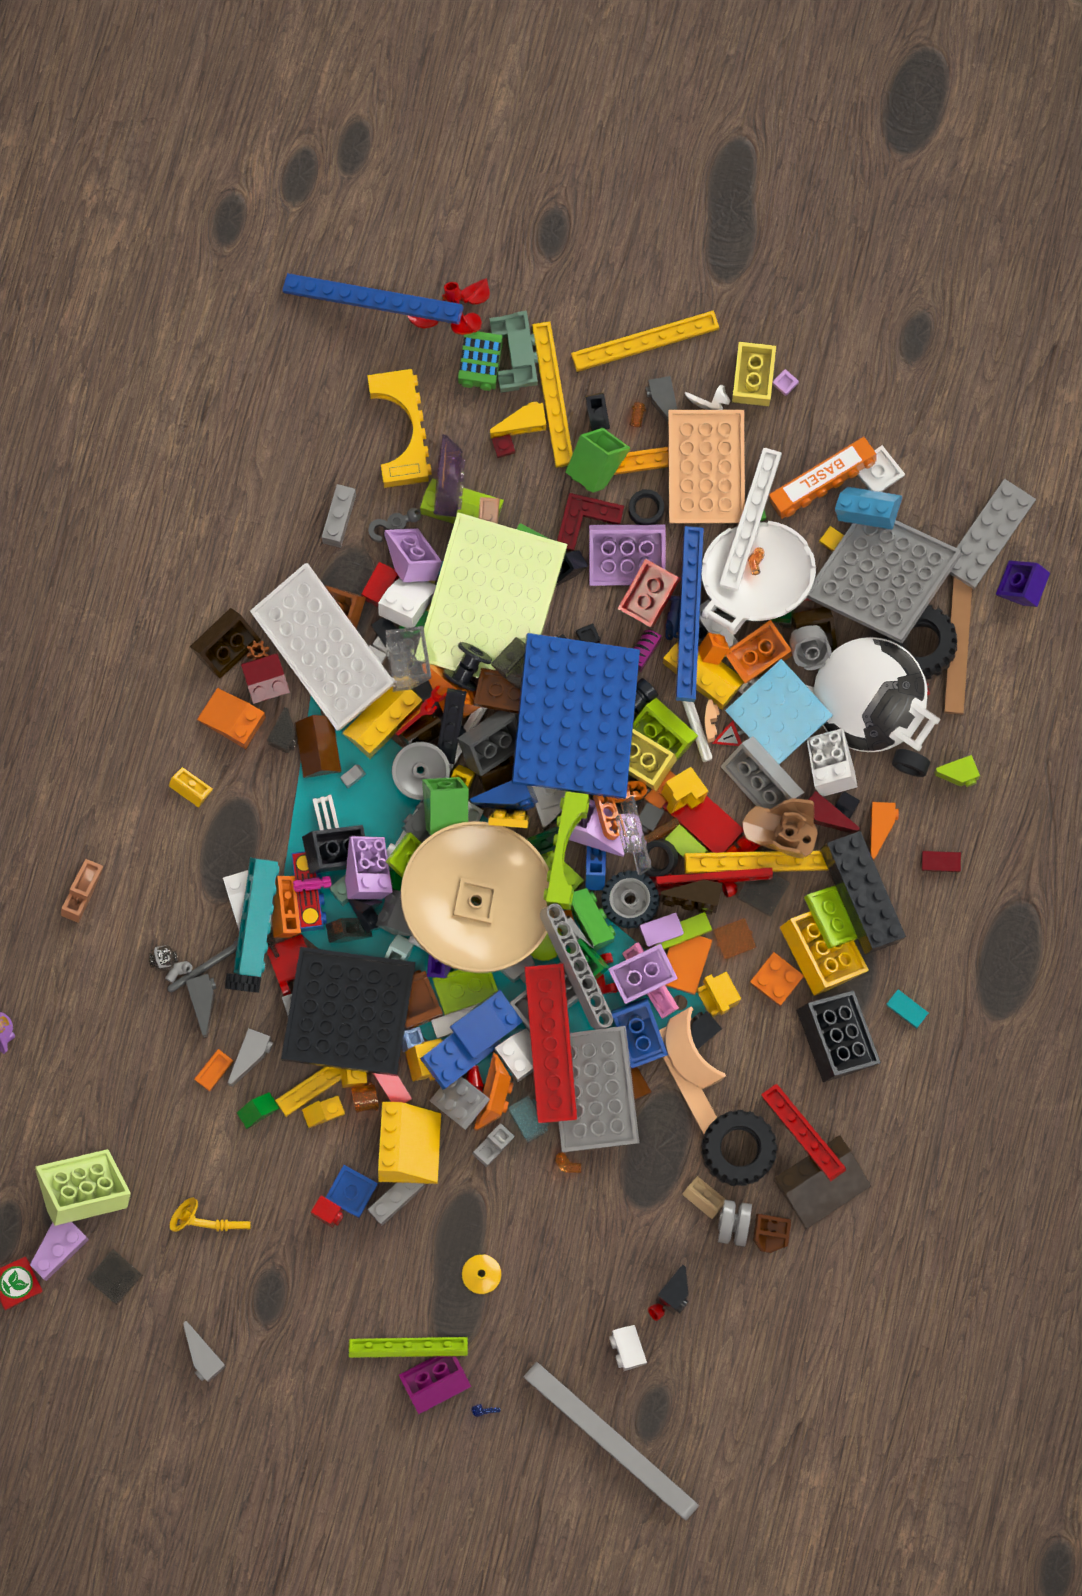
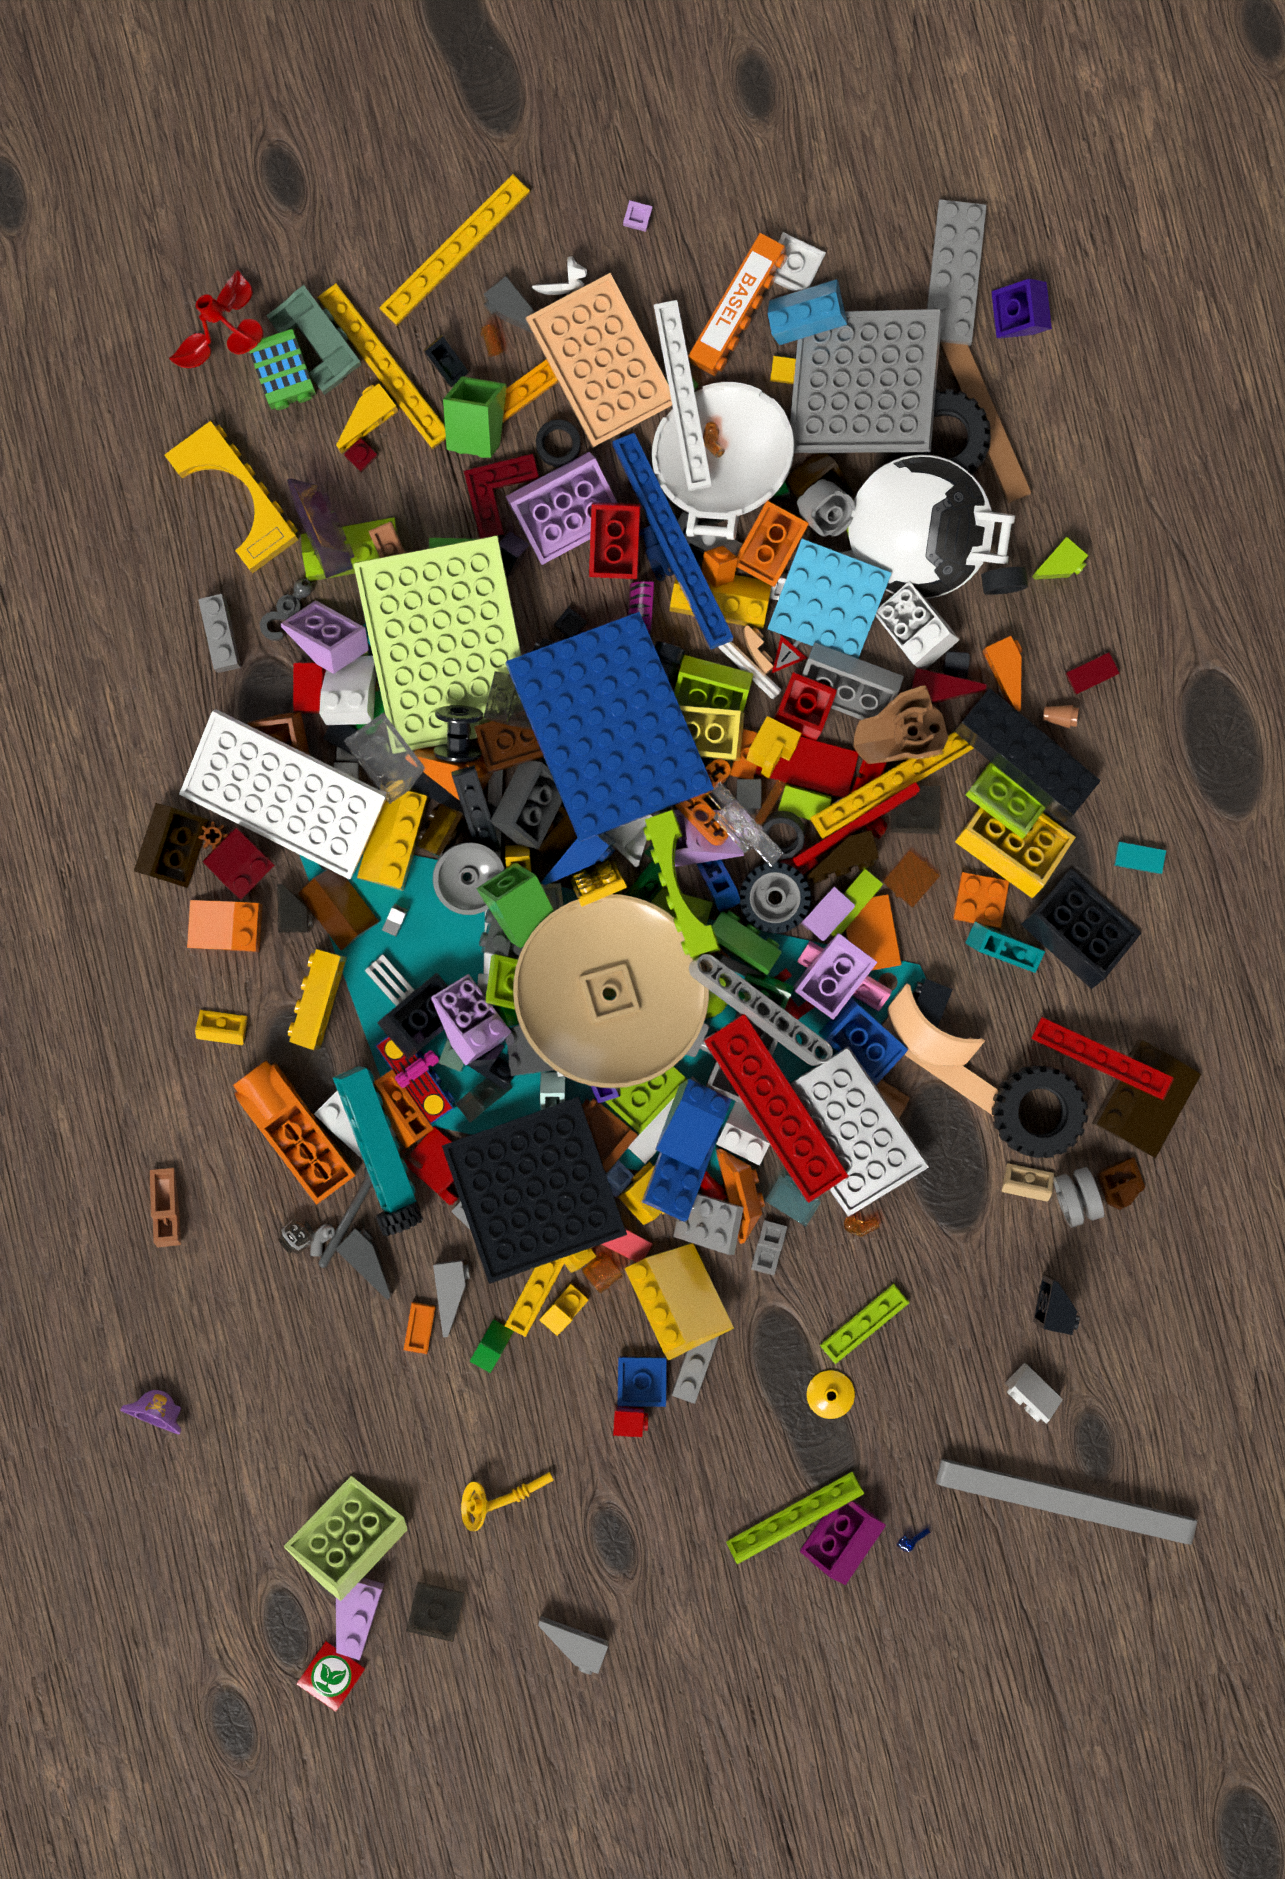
camera: 30 degrees left, 10 degrees up
(201, 882) = (293, 1131): none -> orange brick
(269, 801) = (317, 1000): none -> yellow slope
(373, 298) = (123, 362): blue plate -> none
(424, 709) = (435, 811): red flag -> none
(532, 1236) = (864, 1323): none -> lime tile
(656, 1311) = (1041, 1336): red hinge -> none
(718, 994) = (928, 953): yellow plate -> none
(723, 776) = (805, 705): none -> red slope
(754, 374) = (598, 224): light yellow brick -> none
(776, 1020) = (1004, 947): none -> teal slope
(904, 879) = (1062, 715): none -> nougat cone

